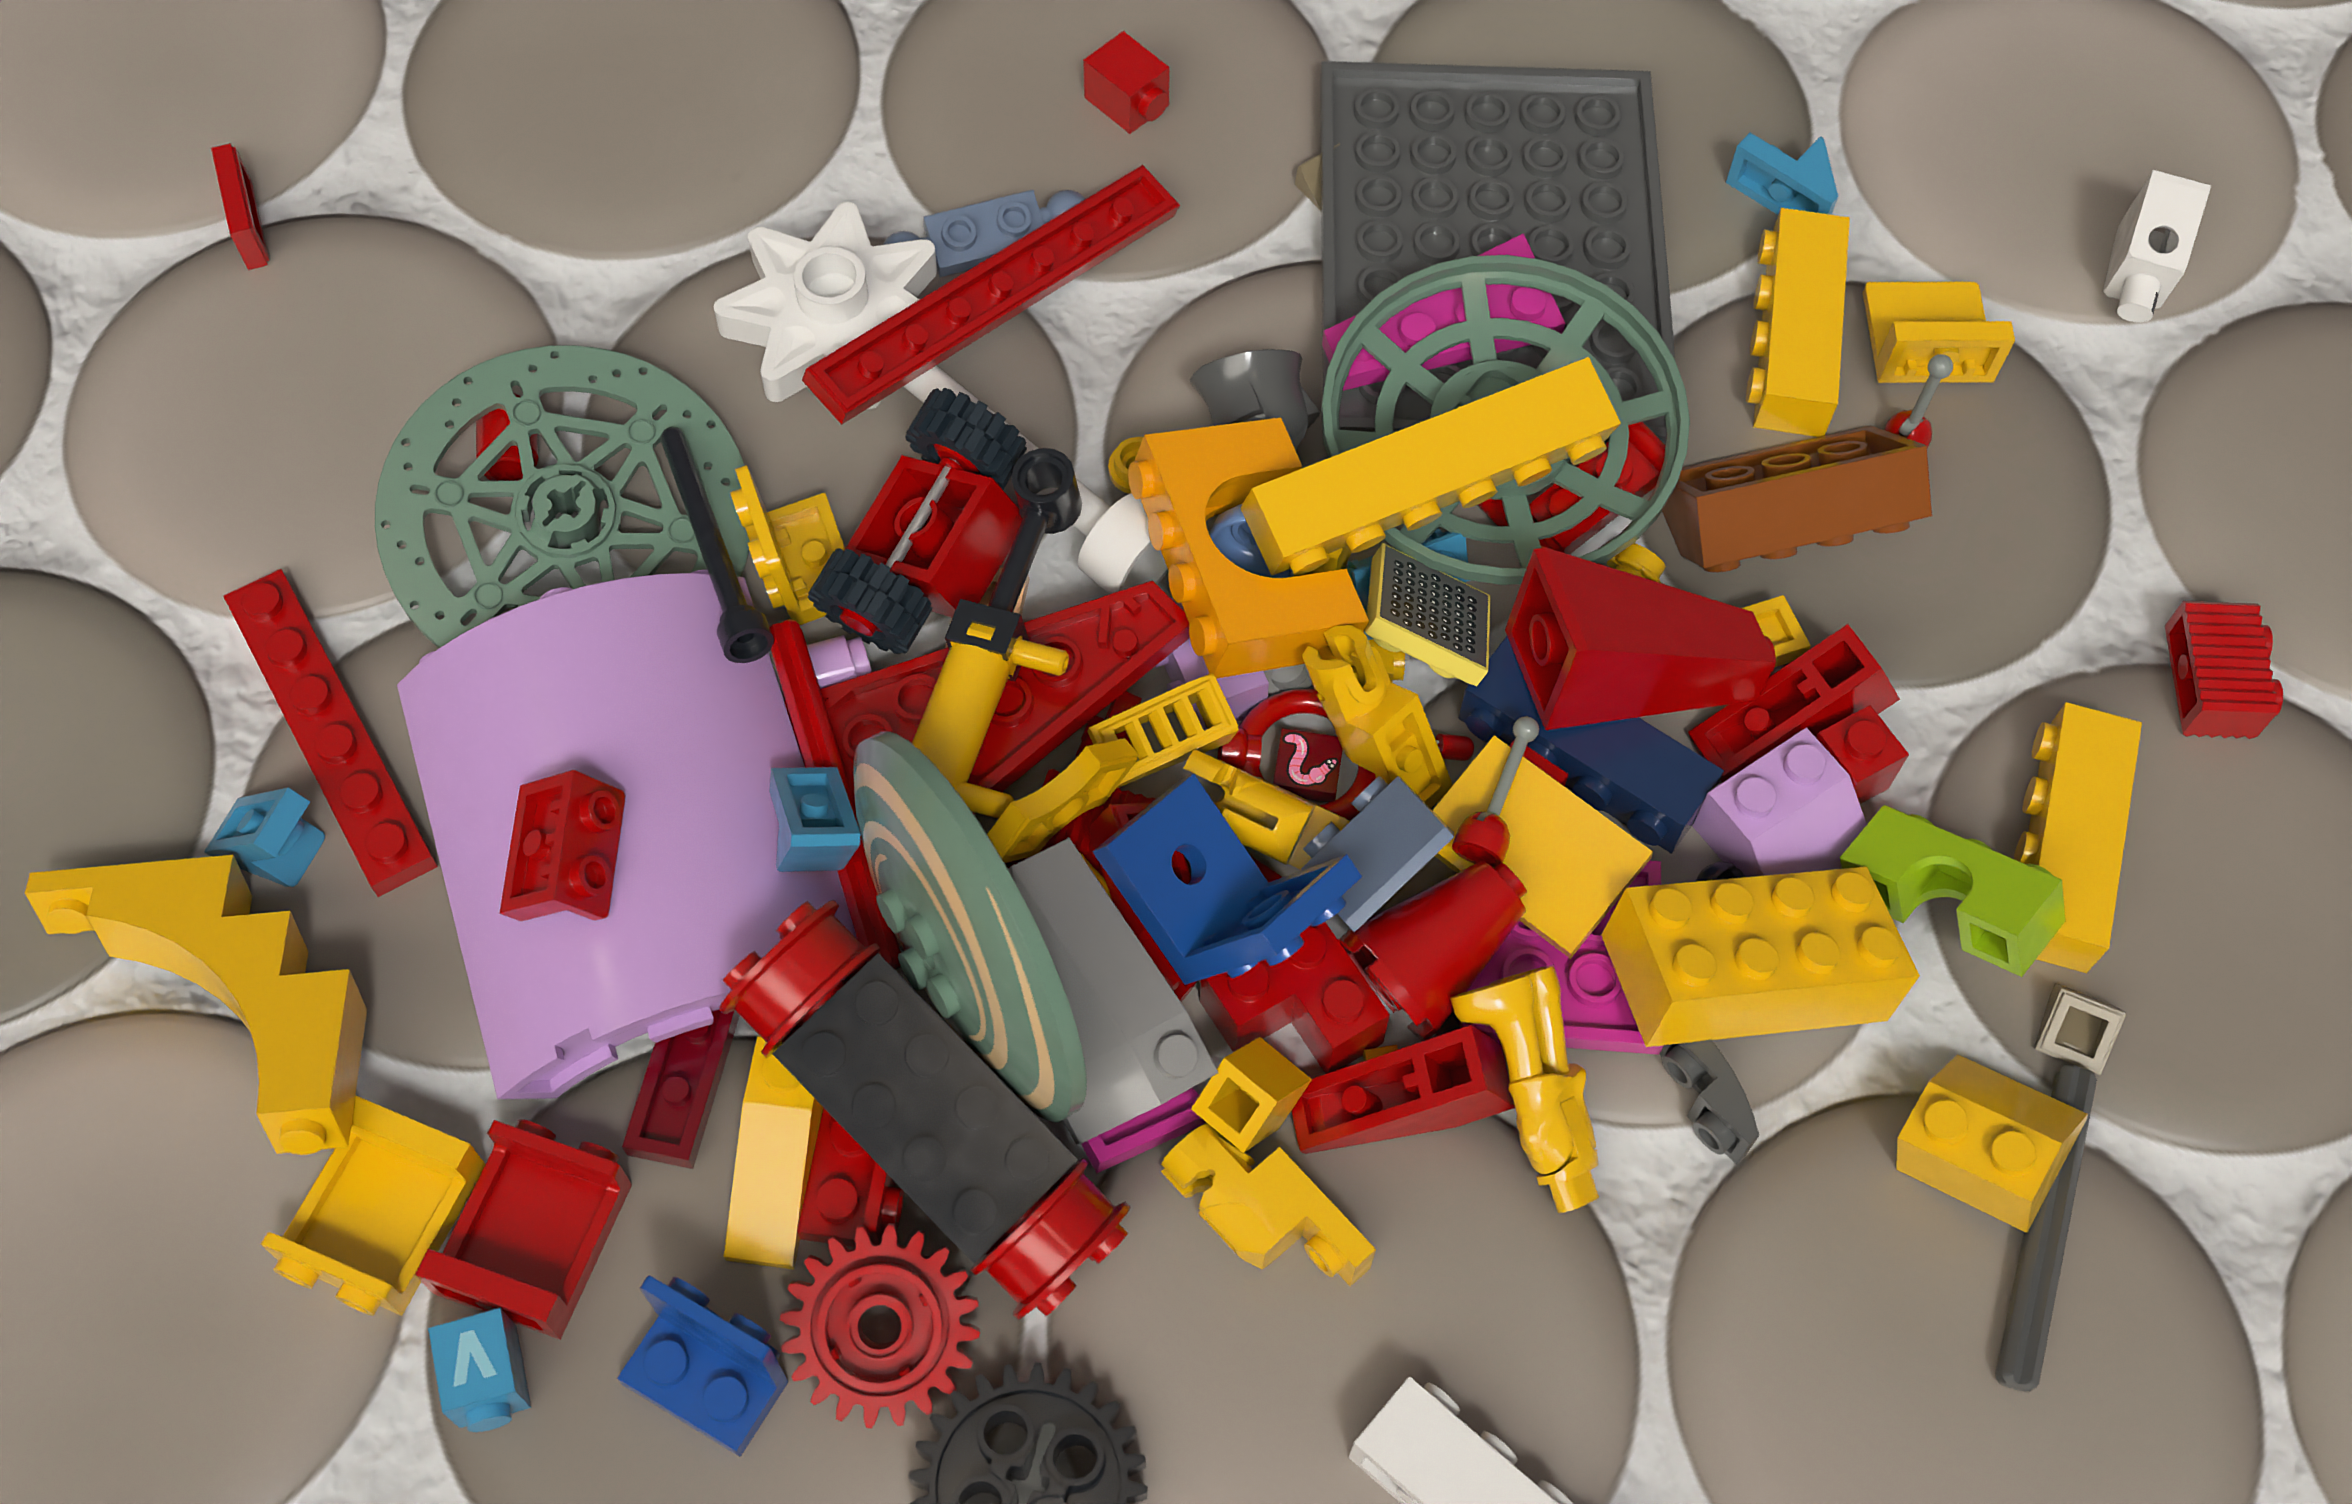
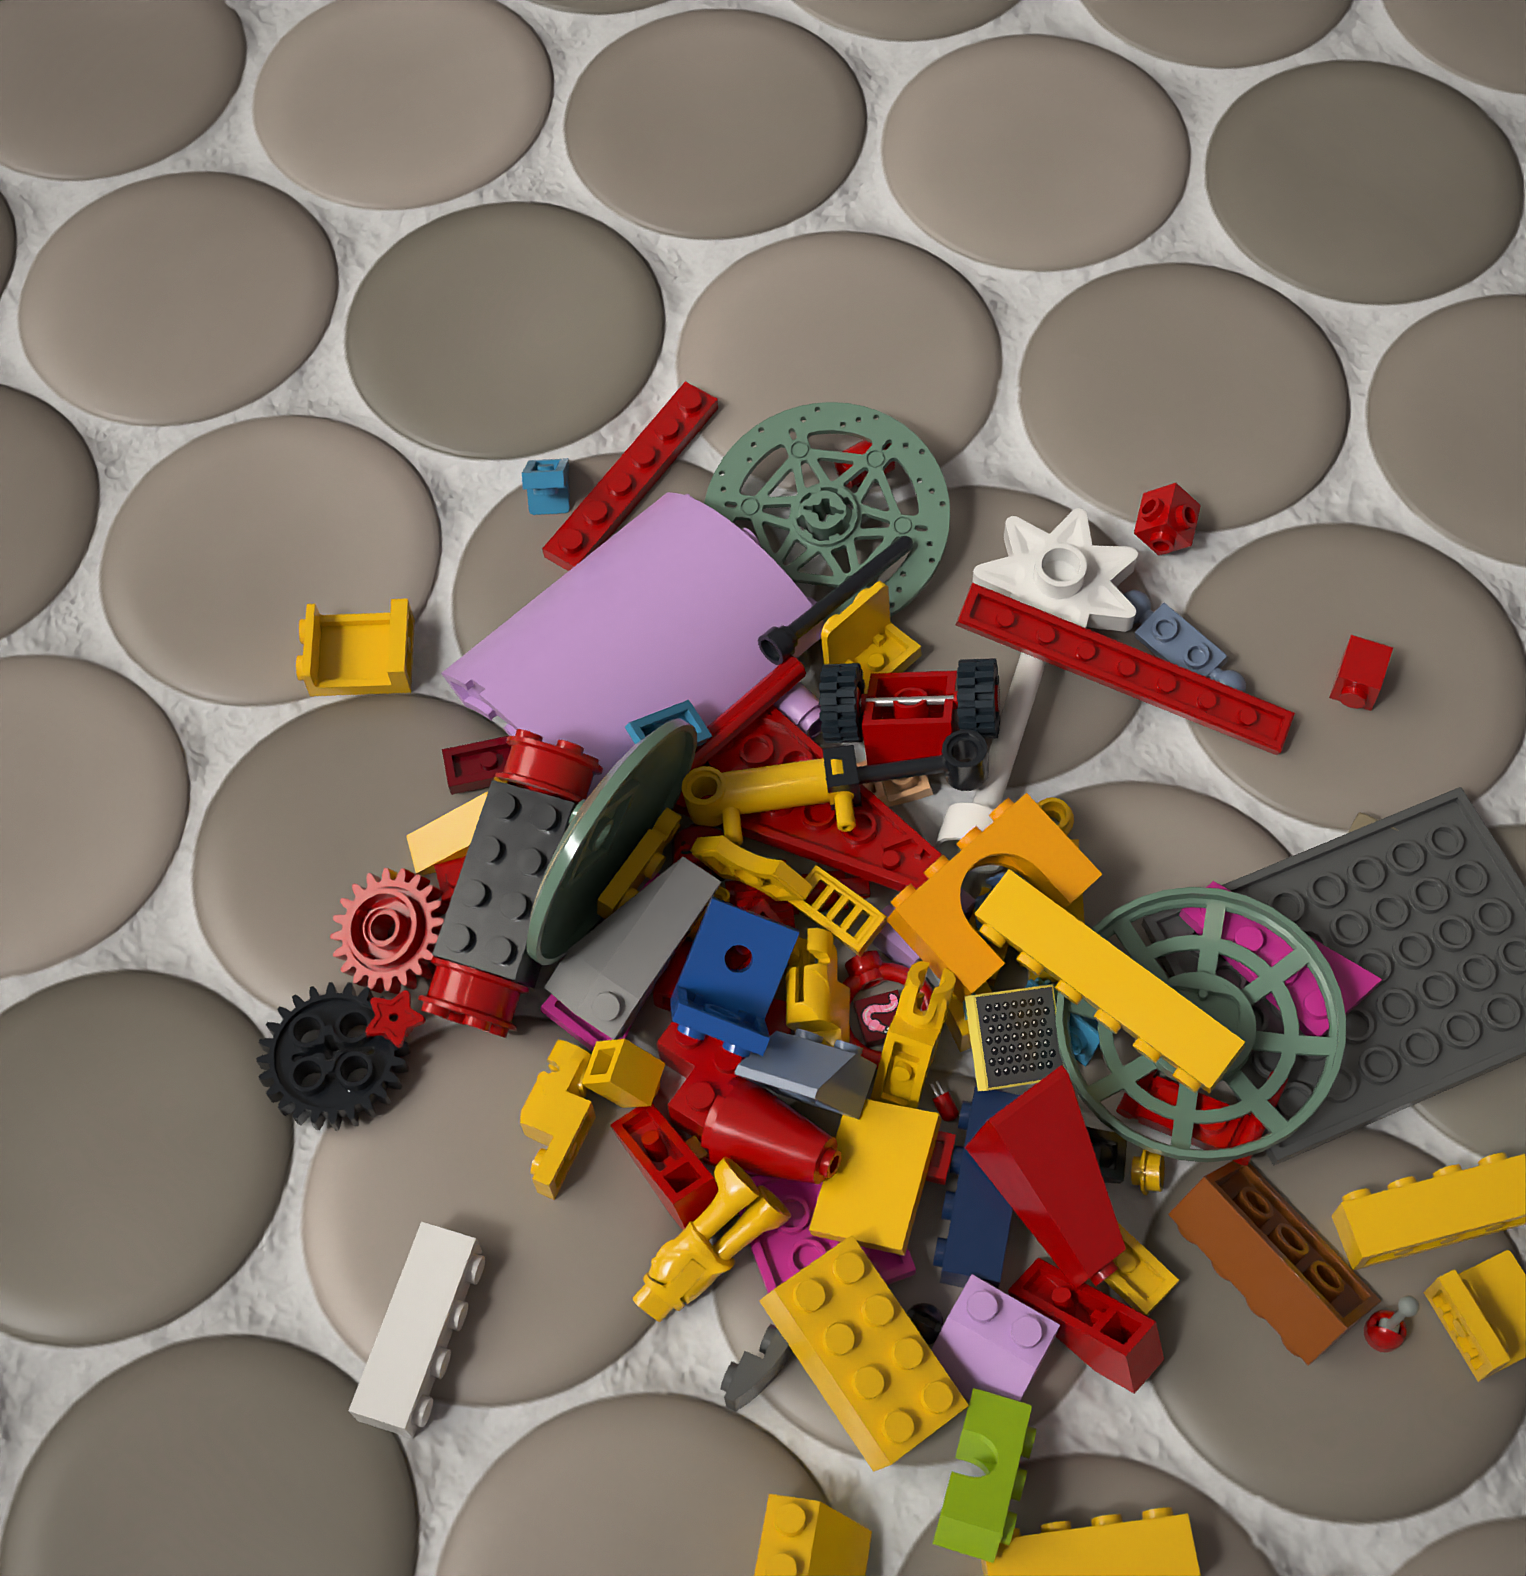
camera: 70 degrees right, 0 degrees up
(198, 924) = (432, 552): yellow arch -> none
(240, 206) = (947, 245): red tile -> none
(479, 1370) = (287, 745): dark azure brick -> none
(530, 1228) = (377, 731): red panel -> none
(563, 848) = (579, 619): red bracket -> none
(704, 1368) = (334, 853): blue bracket -> none
(812, 162) = (1167, 519): none -> red brick
(1032, 1386) = (399, 1029): none -> red plate
(1257, 388) = (1131, 865): dark grey helmet -> none
(1485, 833) = (860, 1135): hinge -> none
(1865, 751) = (1065, 1376): red brick -> none

